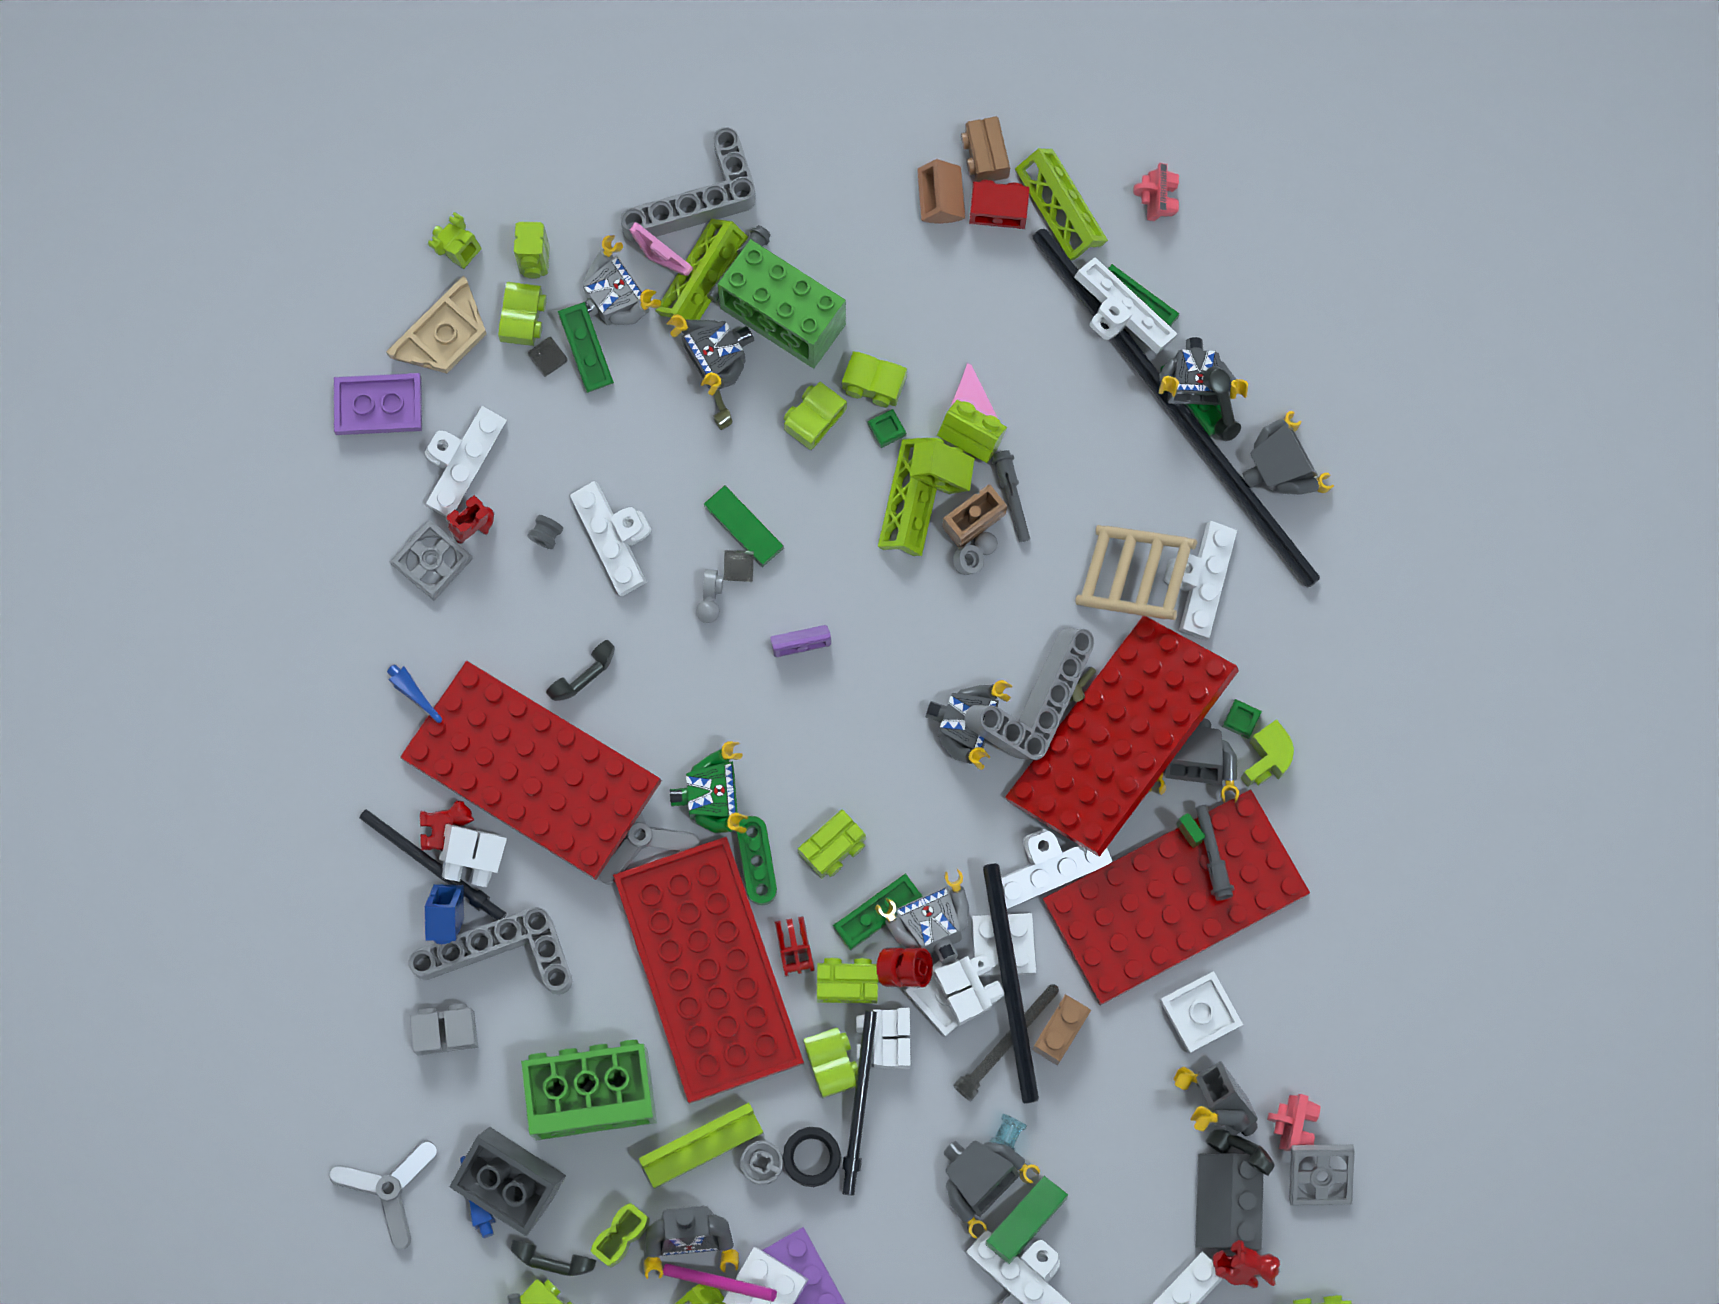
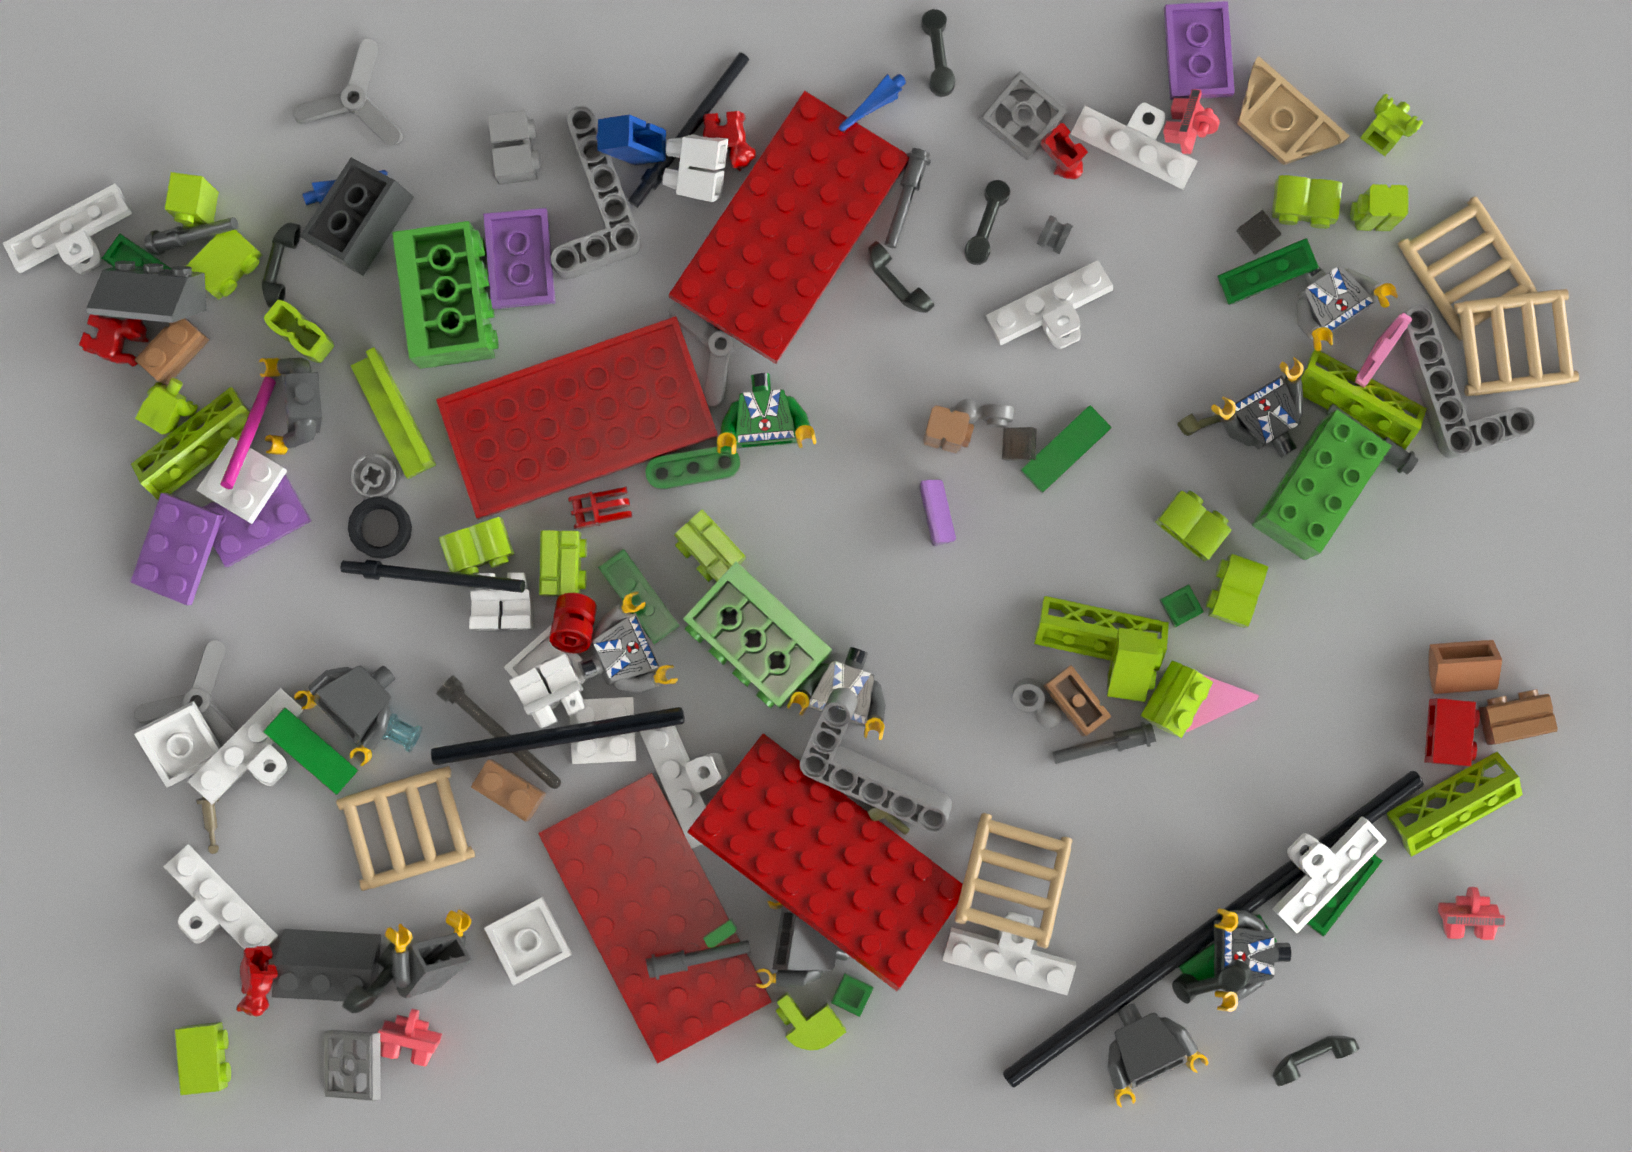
camera: 90 degrees right, 10 degrees up
(394, 630) = (942, 78): none -> pearl dark grey bar
(434, 411) = (1194, 122): none -> coral hips
(491, 660) = (910, 183): none -> dark grey pin
(552, 1023) = (519, 258): none -> medium lavender plate
(556, 599) = (978, 247): none -> pearl dark grey bar
(581, 148) = (1491, 235): none -> tan bar
(622, 157) = (1536, 378): none -> tan bar
(726, 625) = (948, 429): none -> medium nougat brick
(911, 778) = (761, 614): none -> bright green brick
(1128, 1105) = (379, 796): none -> tan bar
(1294, 346) = (1287, 1069): none -> pearl dark grey bar

